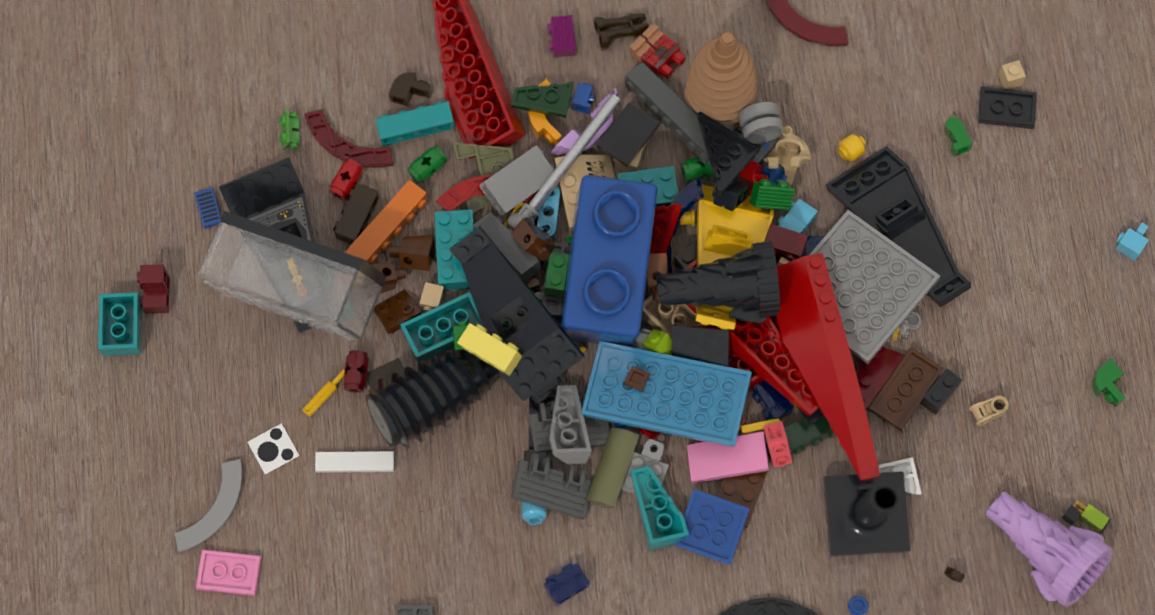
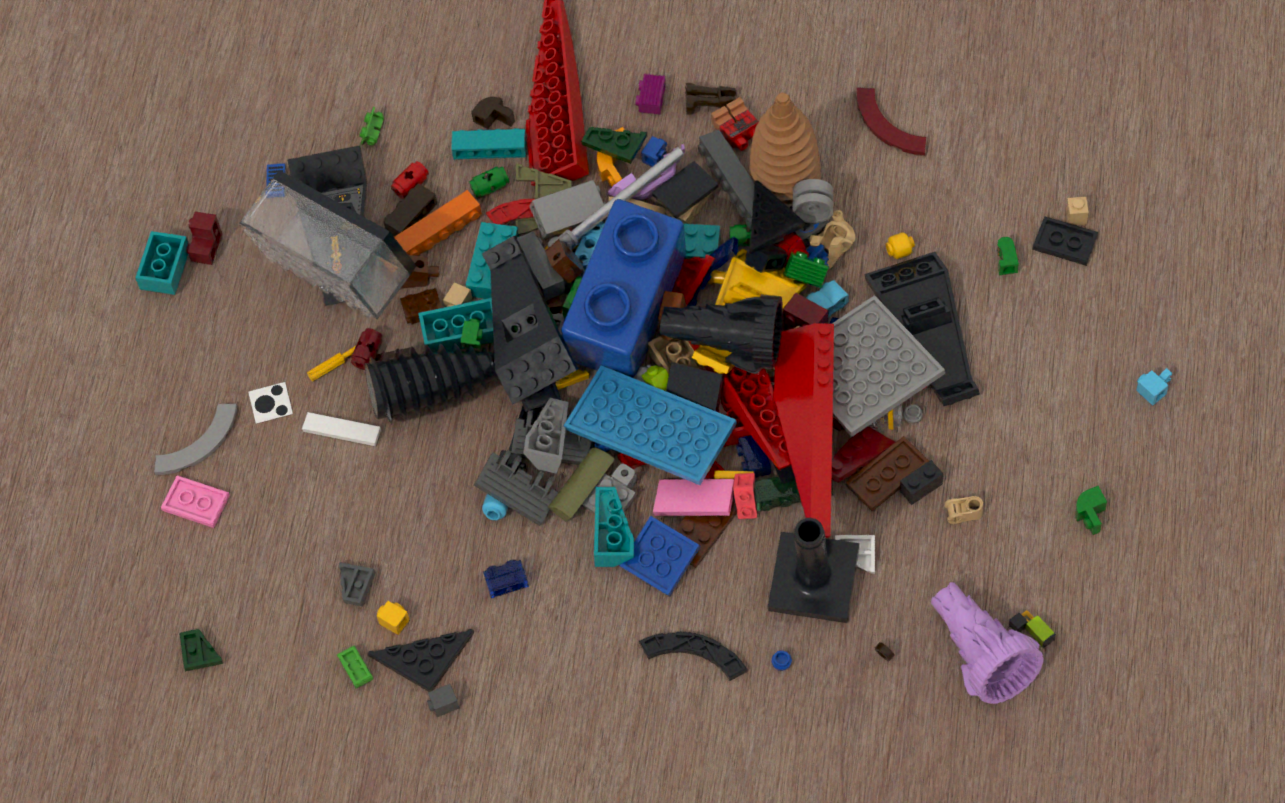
camera: 20 degrees right, 10 degrees down
(343, 149) = (414, 152): dark red tile -> none
(415, 252) = (453, 254): reddish brown torso -> none
(490, 348) = (491, 344): light yellow brick -> none
(636, 379) = (624, 404): reddish brown tile -> none

